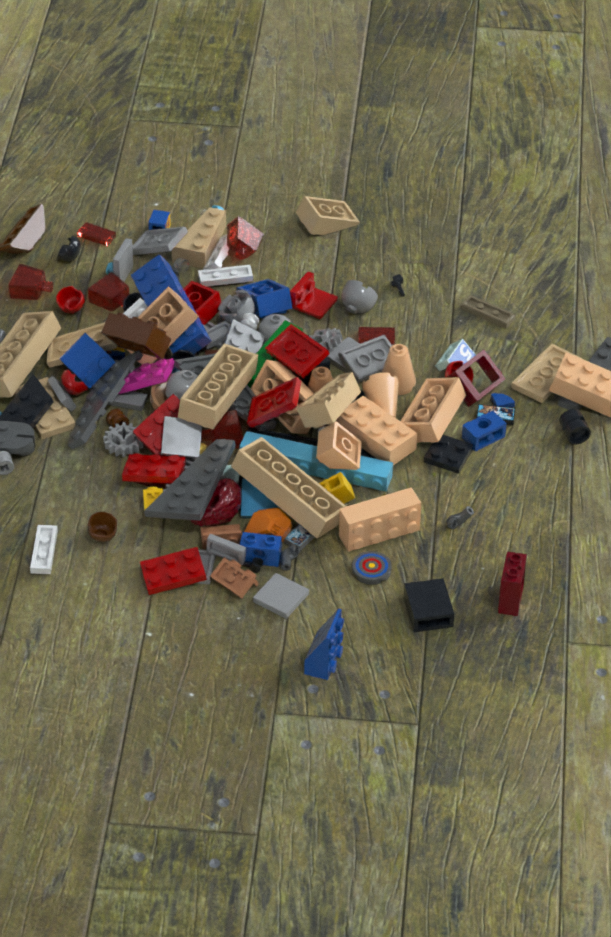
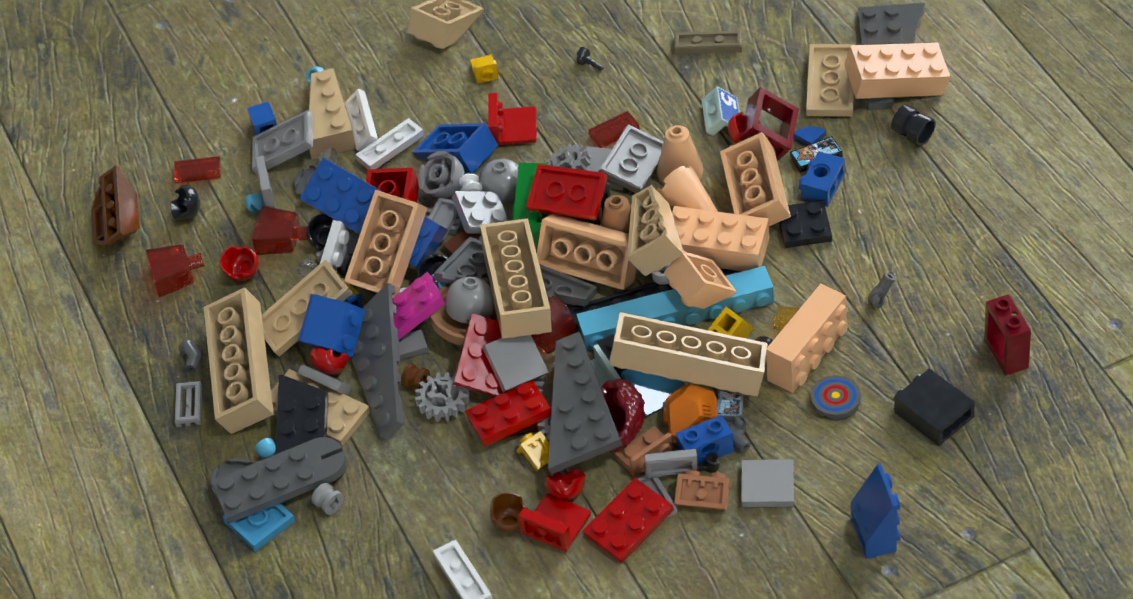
camera: 25 degrees left, 5 degrees up
(126, 548) = (554, 521): none -> red bracket
(136, 335) = (378, 266): reddish brown brick -> none
(150, 529) = (567, 485): none -> red hair
(243, 238) = (378, 91): clear red torso -> none
(274, 402) = (590, 264): red plate -> none
(326, 259) = (484, 69): none -> yellow bracket
(358, 298) = (562, 96): light grey cylinder -> none

